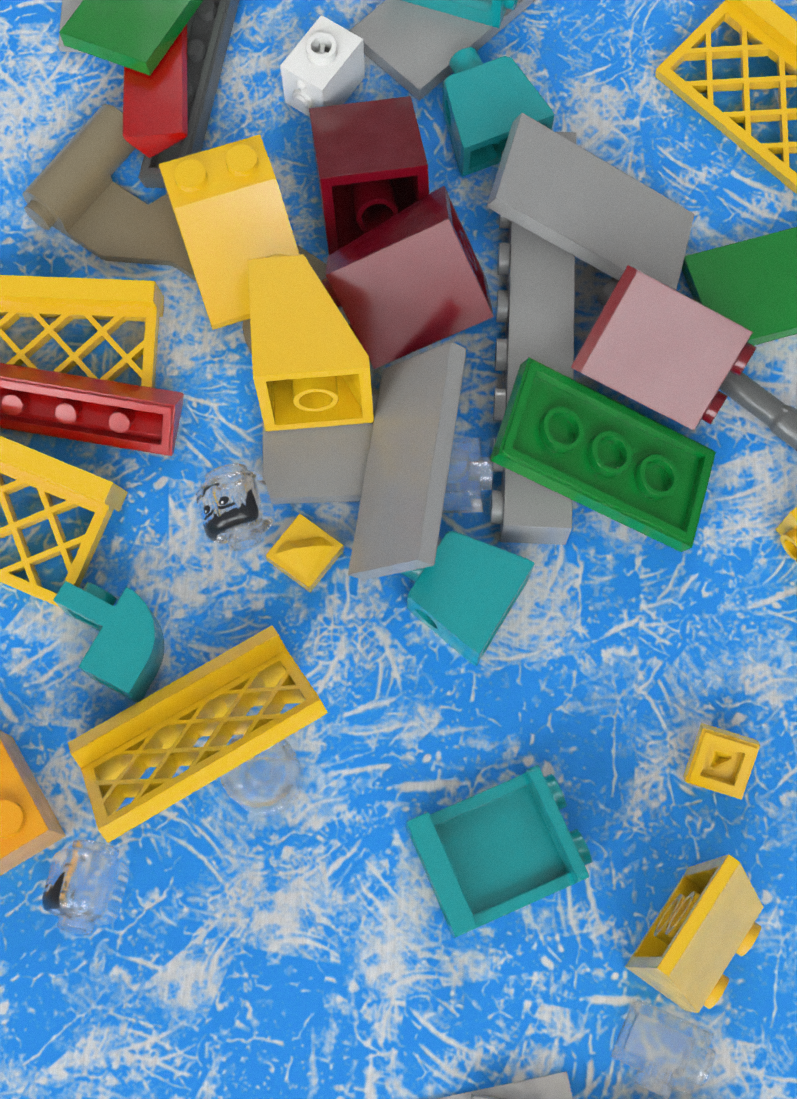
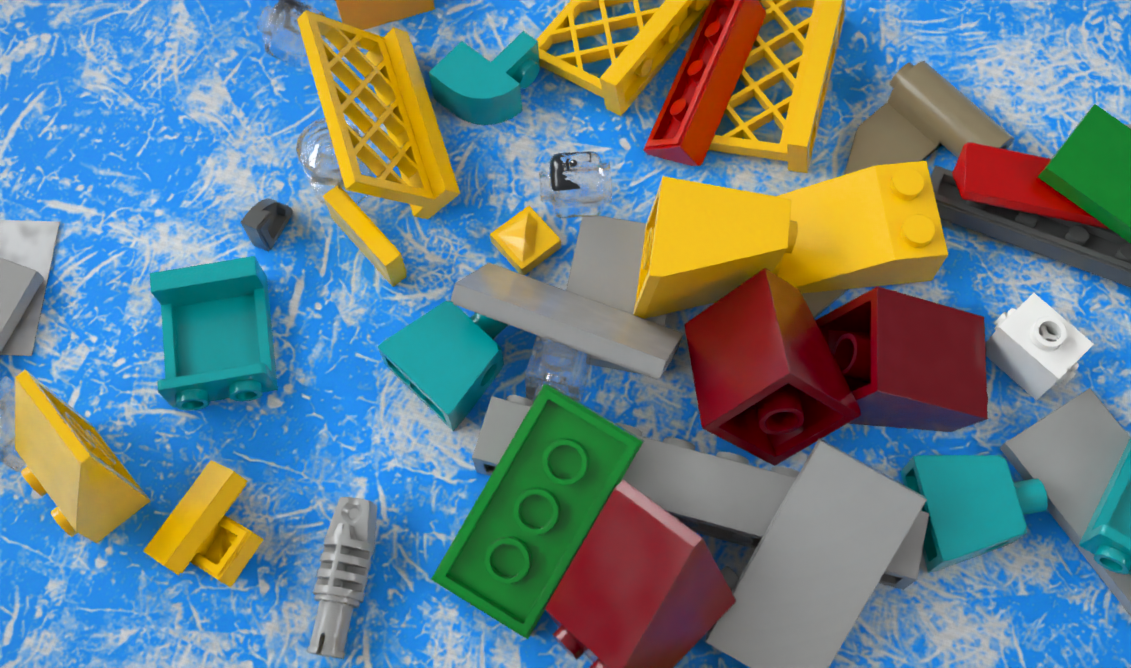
camera: 105 degrees right, 5 degrees down
(342, 717) = (365, 235): none -> yellow tile
(345, 838) = (266, 222): none -> dark grey tile
(700, 800) = (195, 517): none -> yellow tile
(709, 634) = (342, 574): none -> light grey hinge

